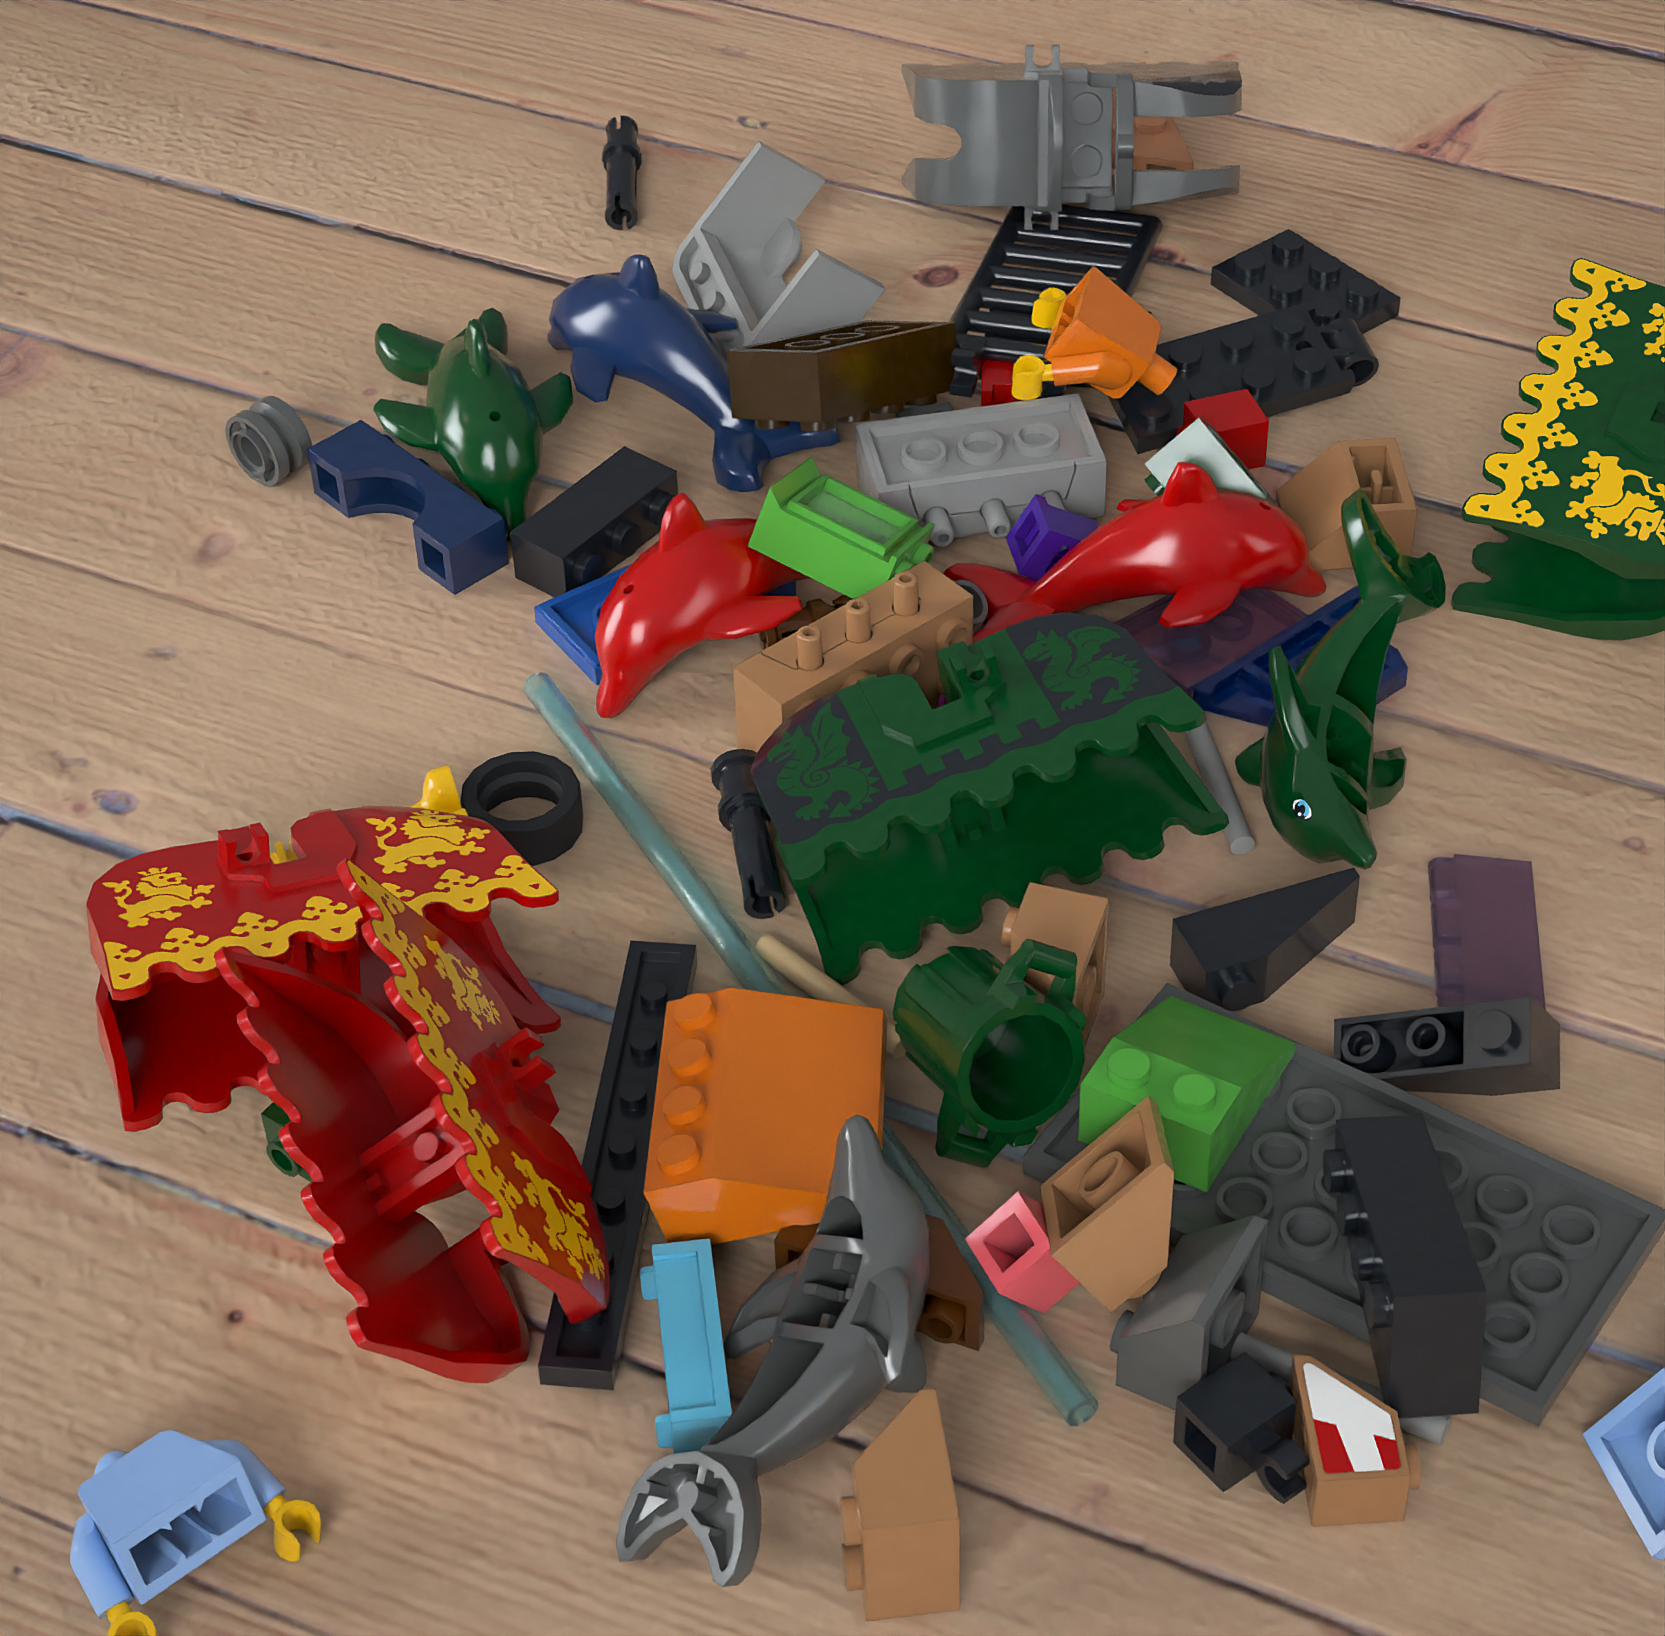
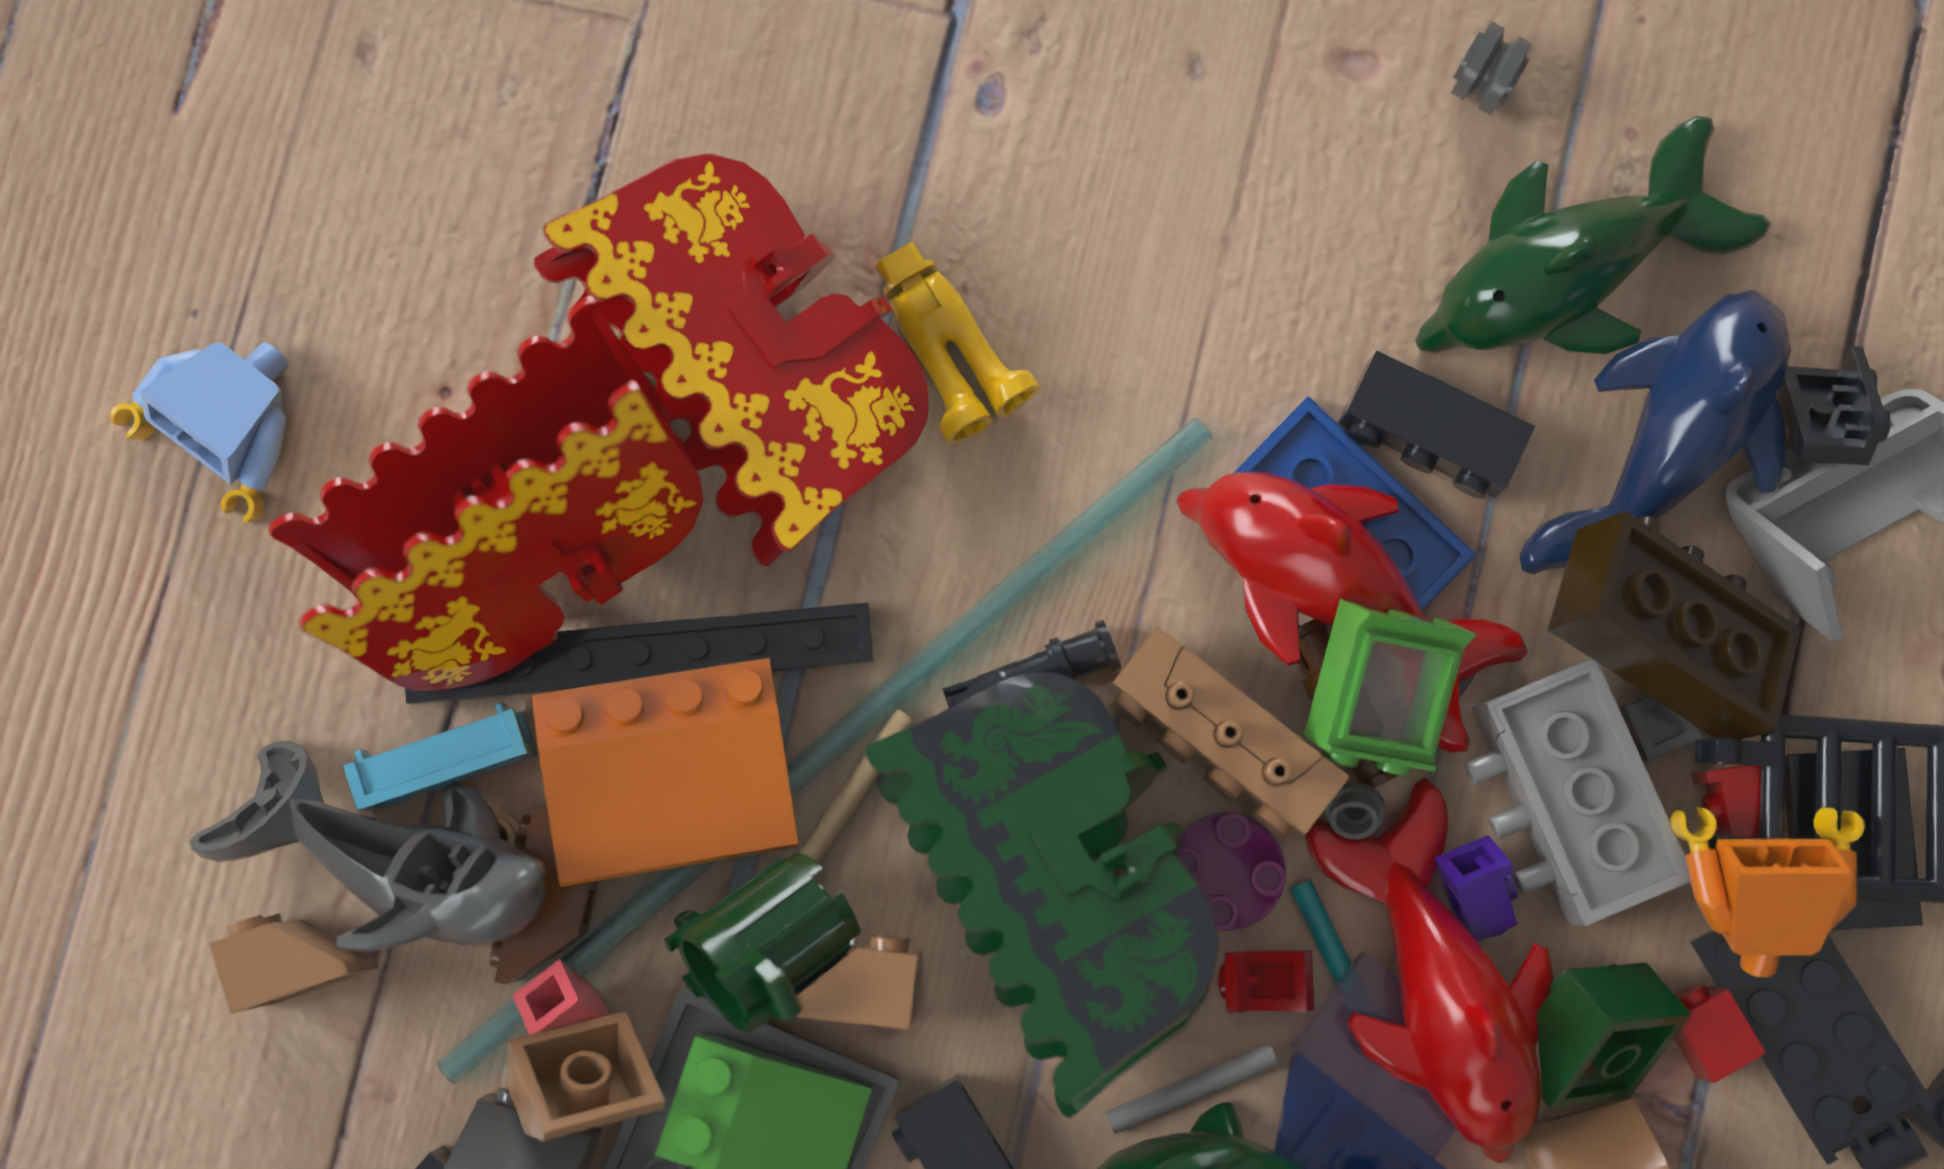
camera: 80 degrees right, 40 degrees up
(369, 474) = (1466, 177): dark blue arch -> none
(524, 776) = (1031, 418): black tyre -> none
(692, 267) = (1835, 412): none -> black bracket

